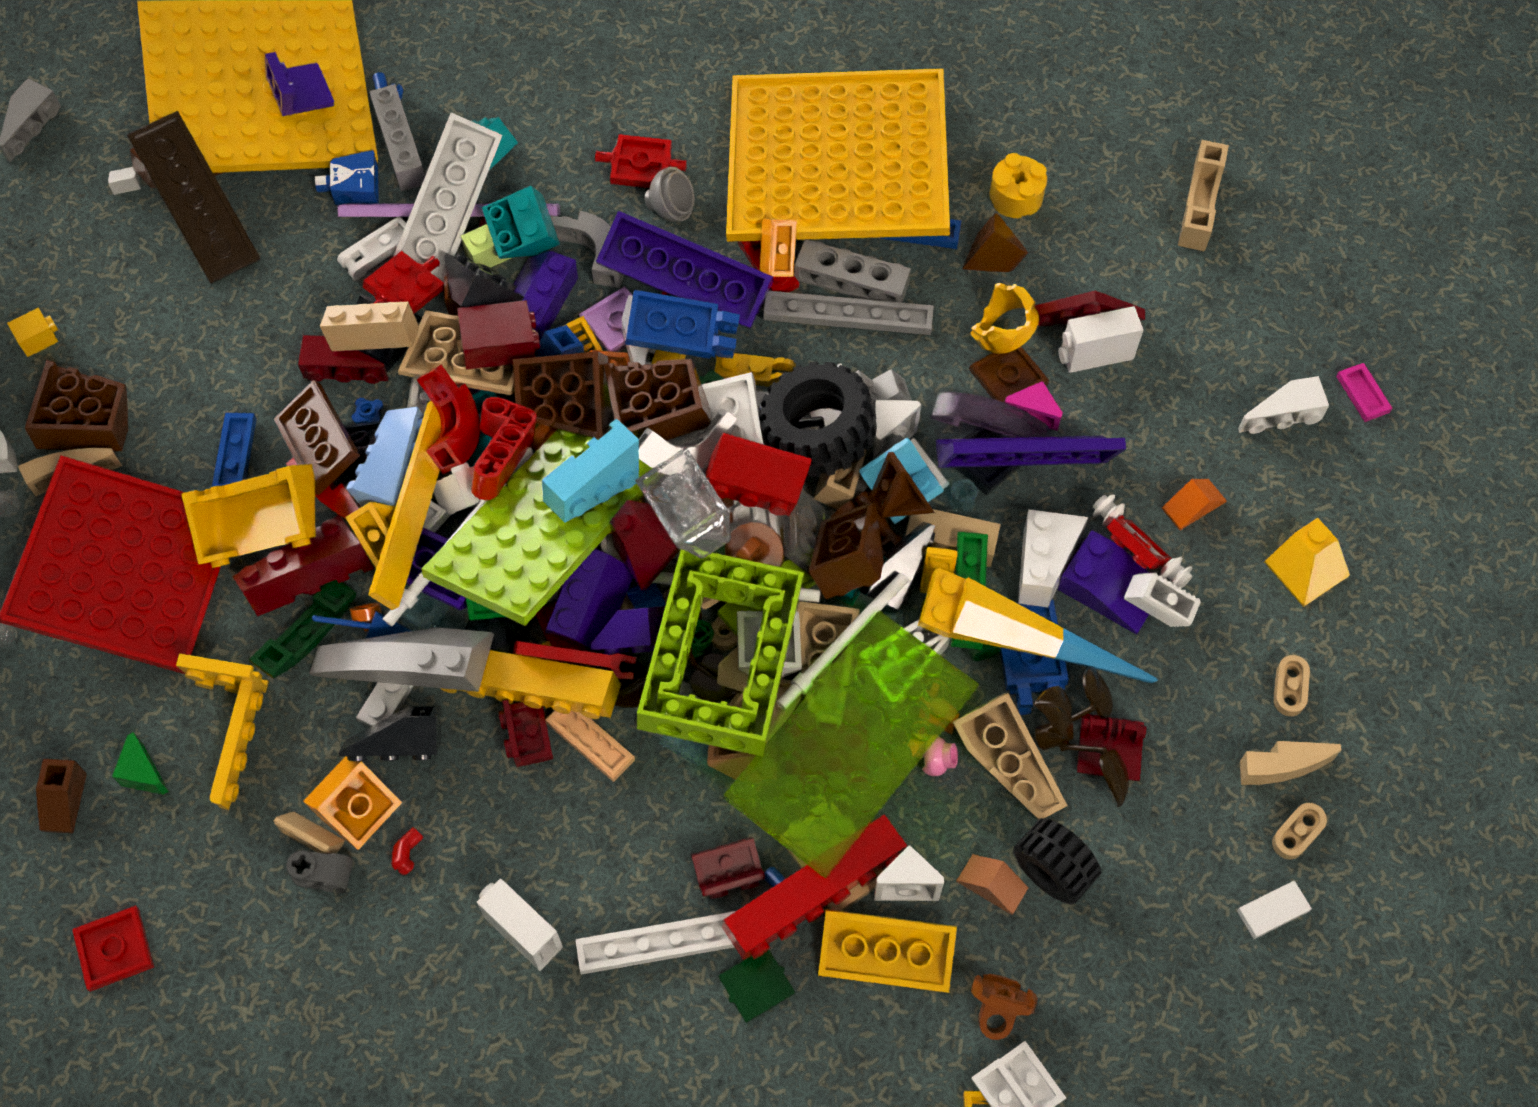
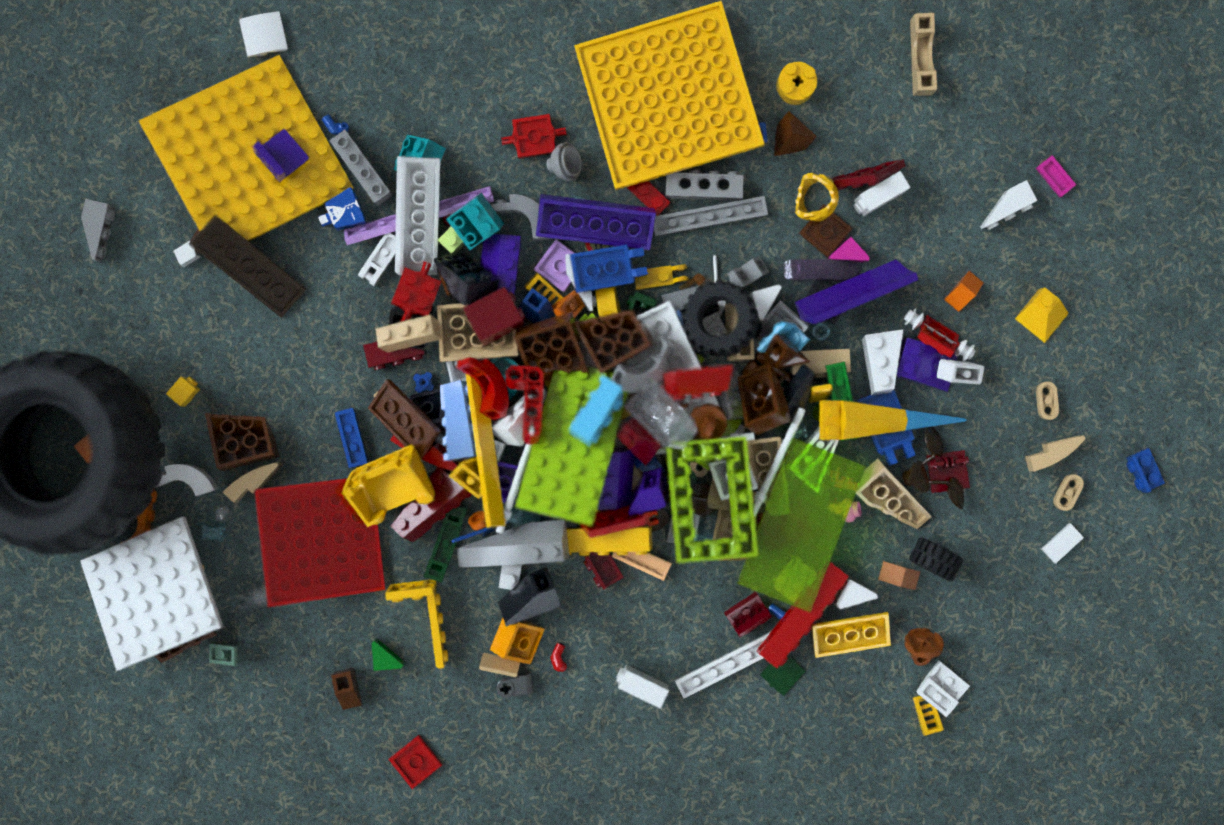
camera: 20 degrees left, 25 degrees up
(778, 247) = (652, 188): light orange slope -> none
(1432, 834) = (1145, 470): none -> blue bracket

